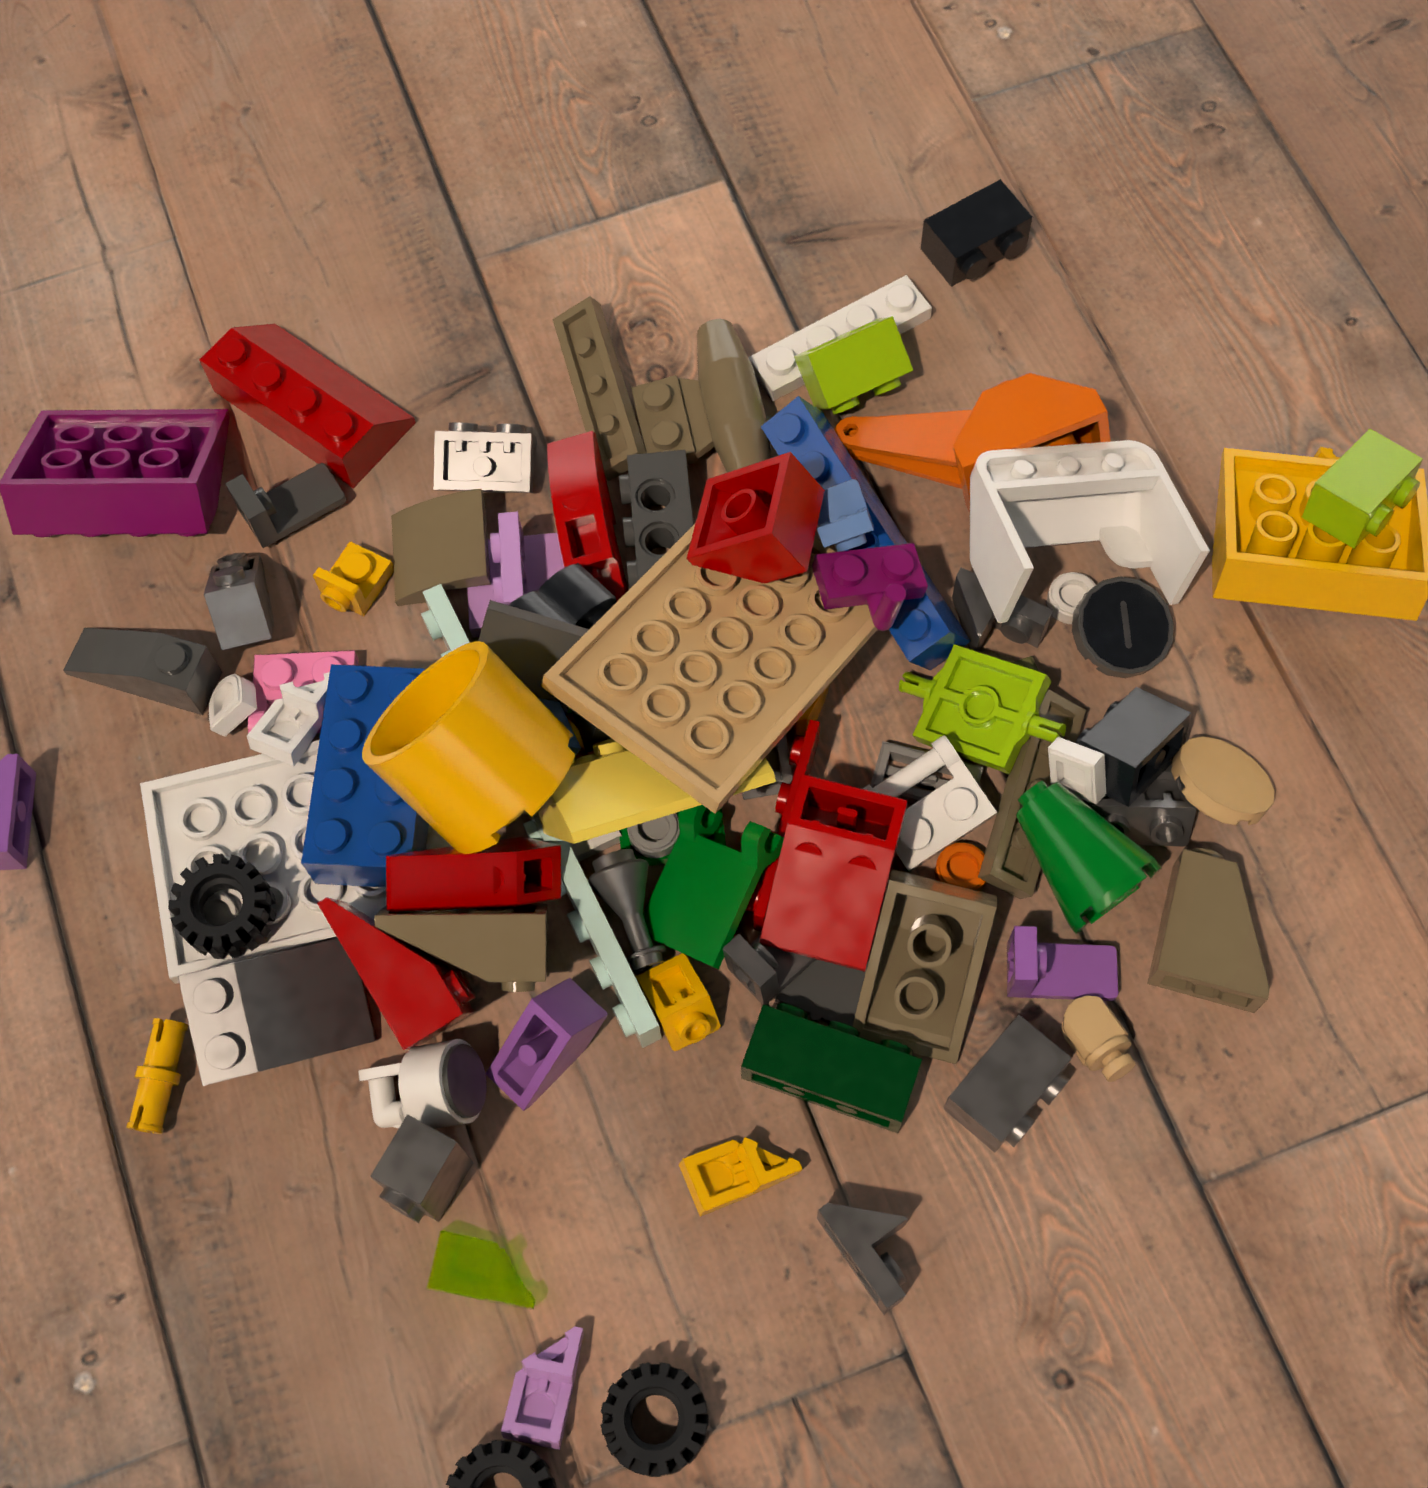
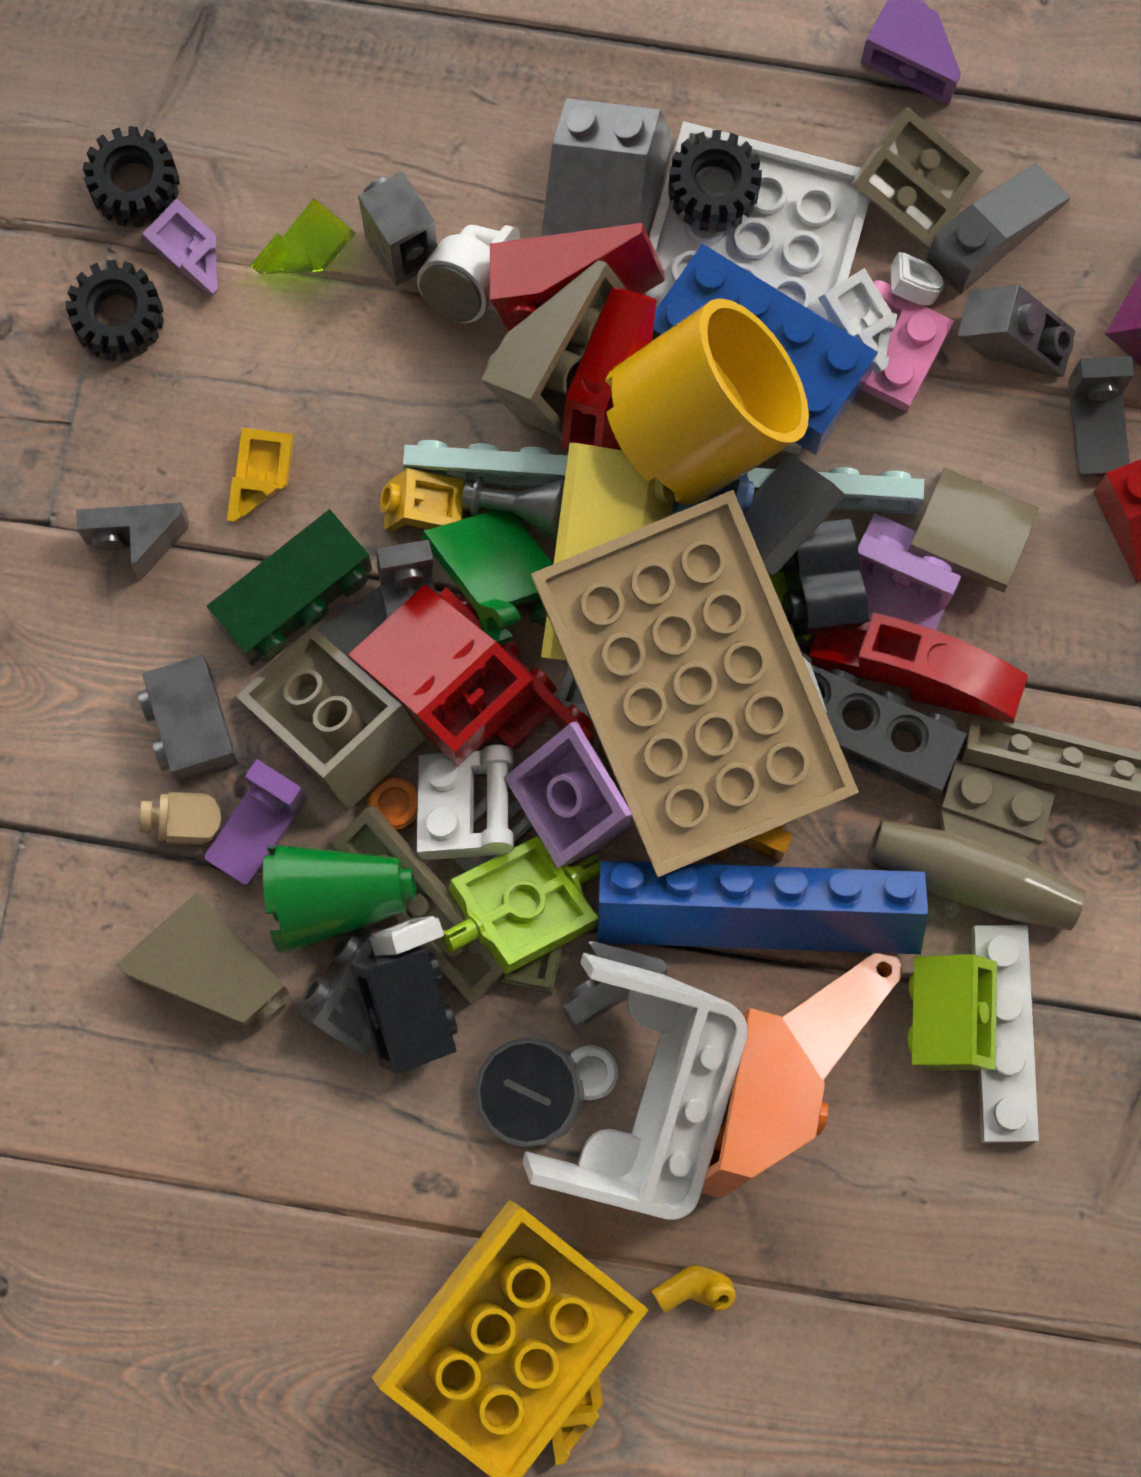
camera: 115 degrees right, 10 degrees up
(129, 749) = (916, 177): none -> dark tan slope
(157, 1076) = (605, 79): yellow pin -> none
(354, 579) = (986, 440): yellow bracket -> none
(484, 459) = (1050, 616): bracket -> none
(545, 1042) = (452, 383): medium lavender slope -> none
(758, 521) = (792, 773): red slope -> none
(844, 516) = (757, 864): medium blue bracket -> none
(871, 711) = (570, 797): none -> lavender slope
(872, 578) = (684, 853): magenta plate -> none
(976, 233) = (1046, 1242): black brick -> none
(1173, 439) = (696, 1284): none -> yellow arm
(1223, 781) = (327, 1072): tan tile -> none
(1363, 489) = (510, 1389): lime brick -> none

